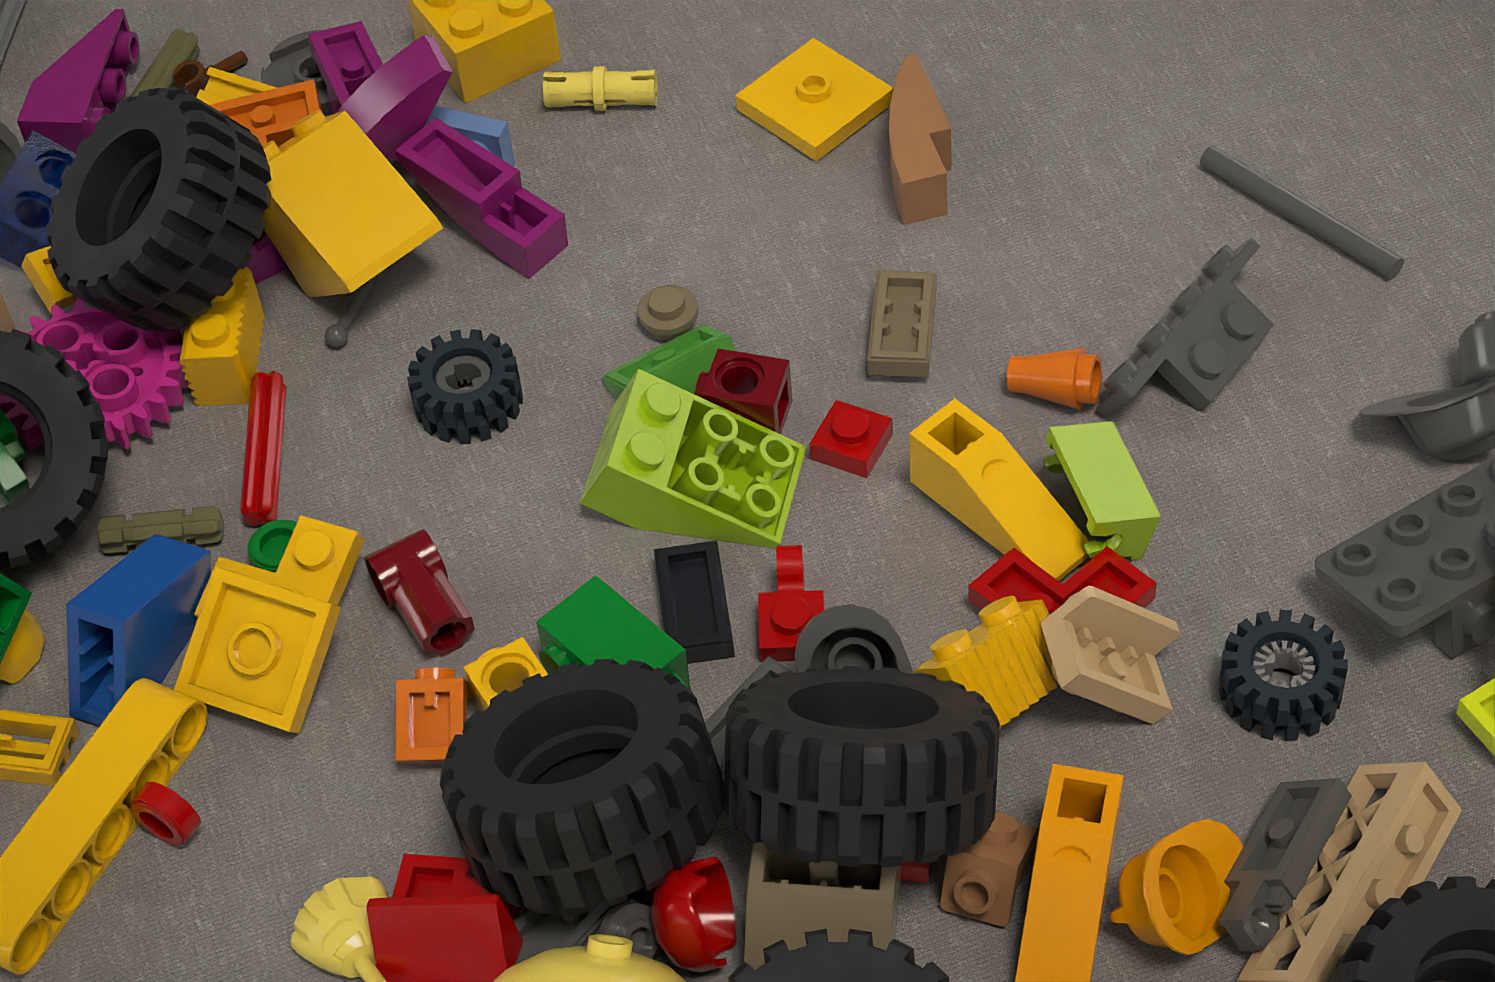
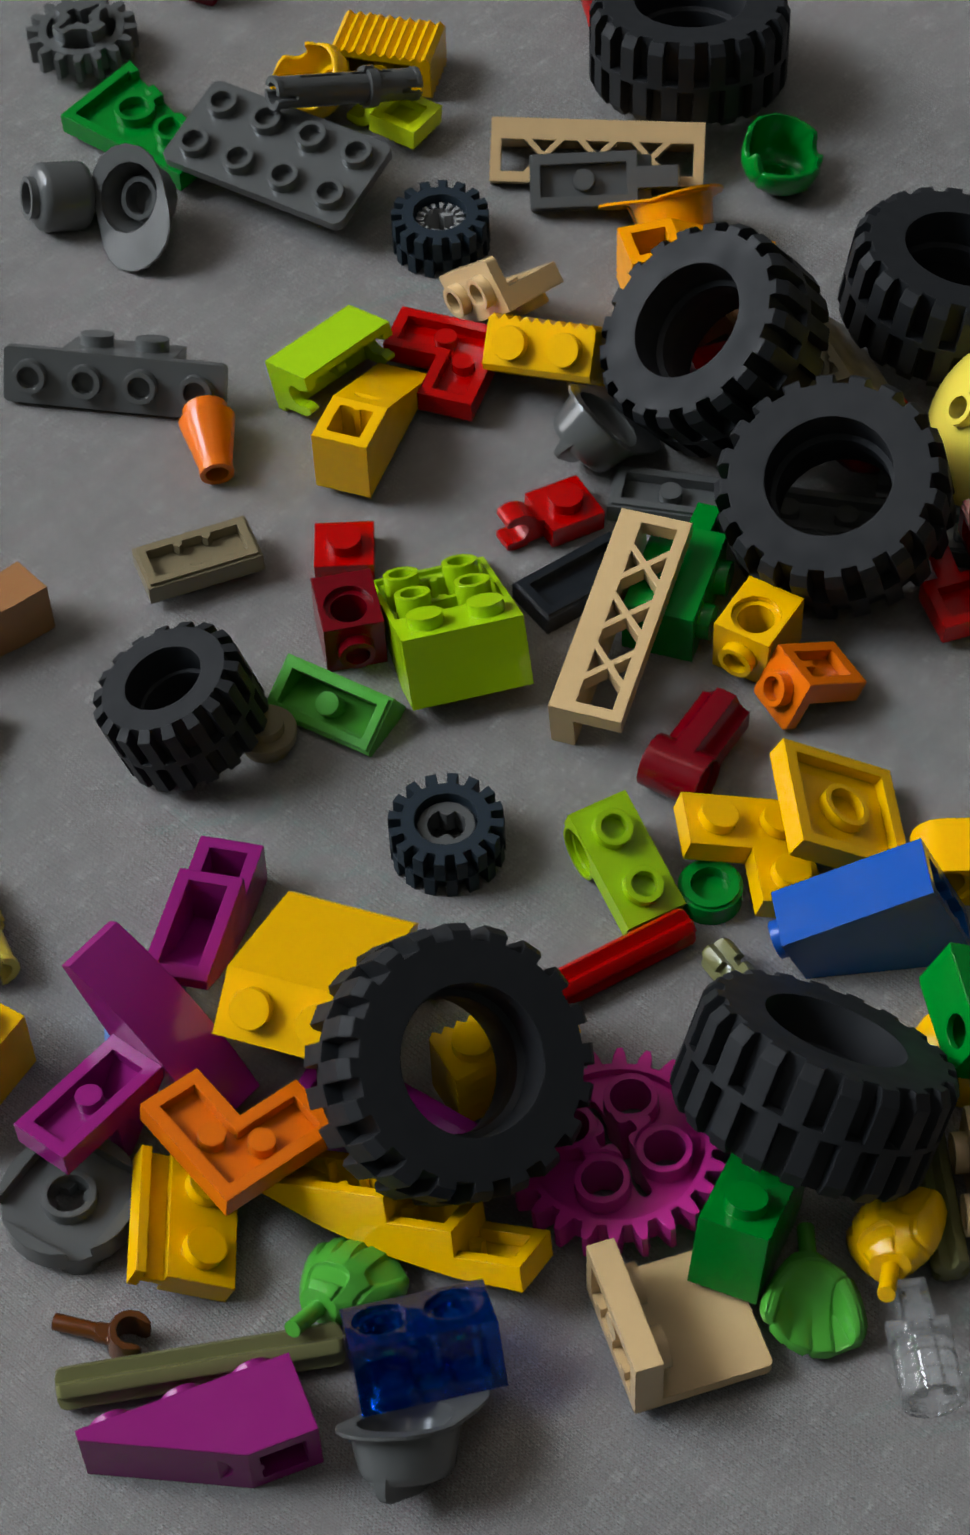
camera: 120 degrees left, 0 degrees up
(352, 483) = (617, 852): none -> lime plate
(581, 552) = (606, 615): none -> tan fence
(703, 233) = (180, 706): none -> black tyre

